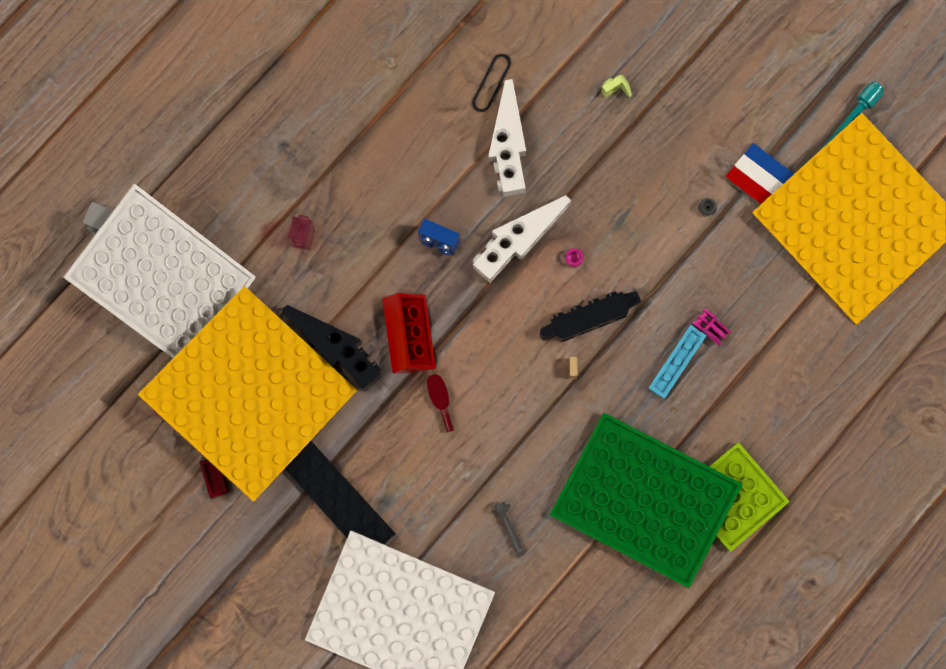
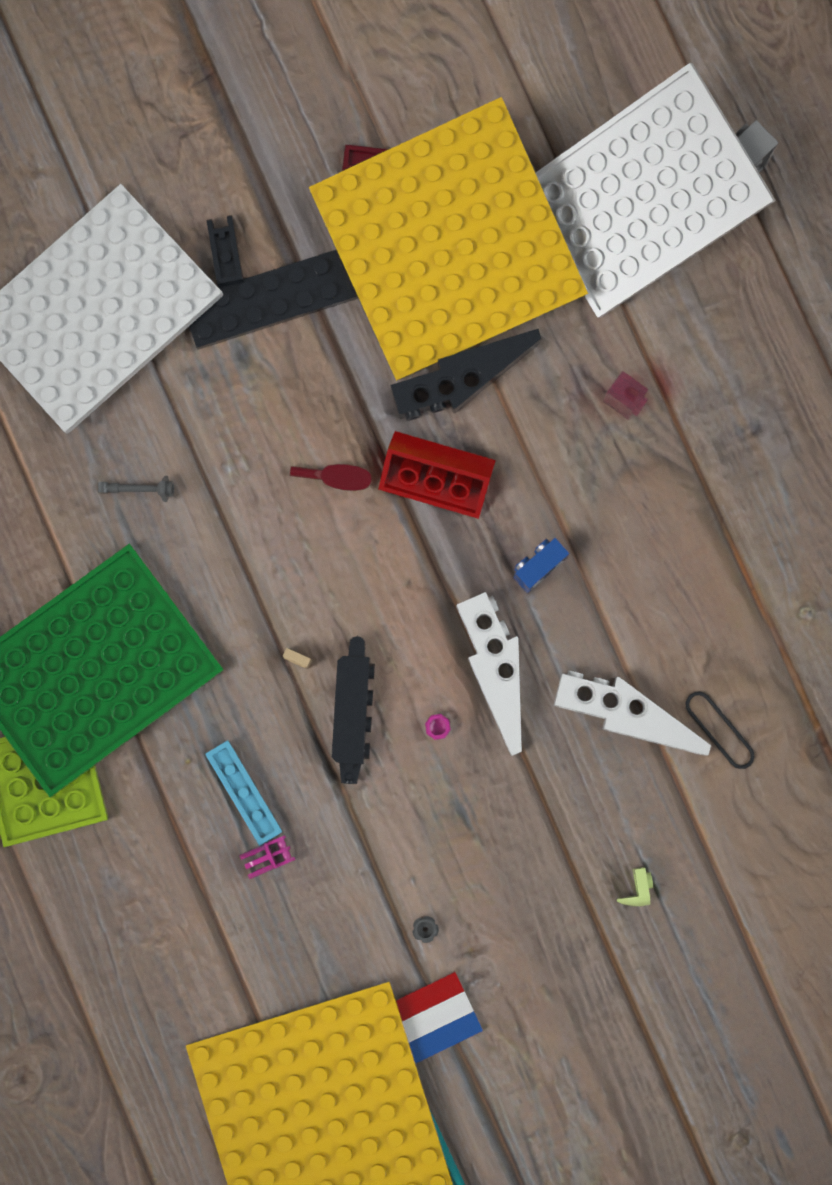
camera: 115 degrees right, 5 degrees up
(321, 544) = (225, 253): none -> black hinge

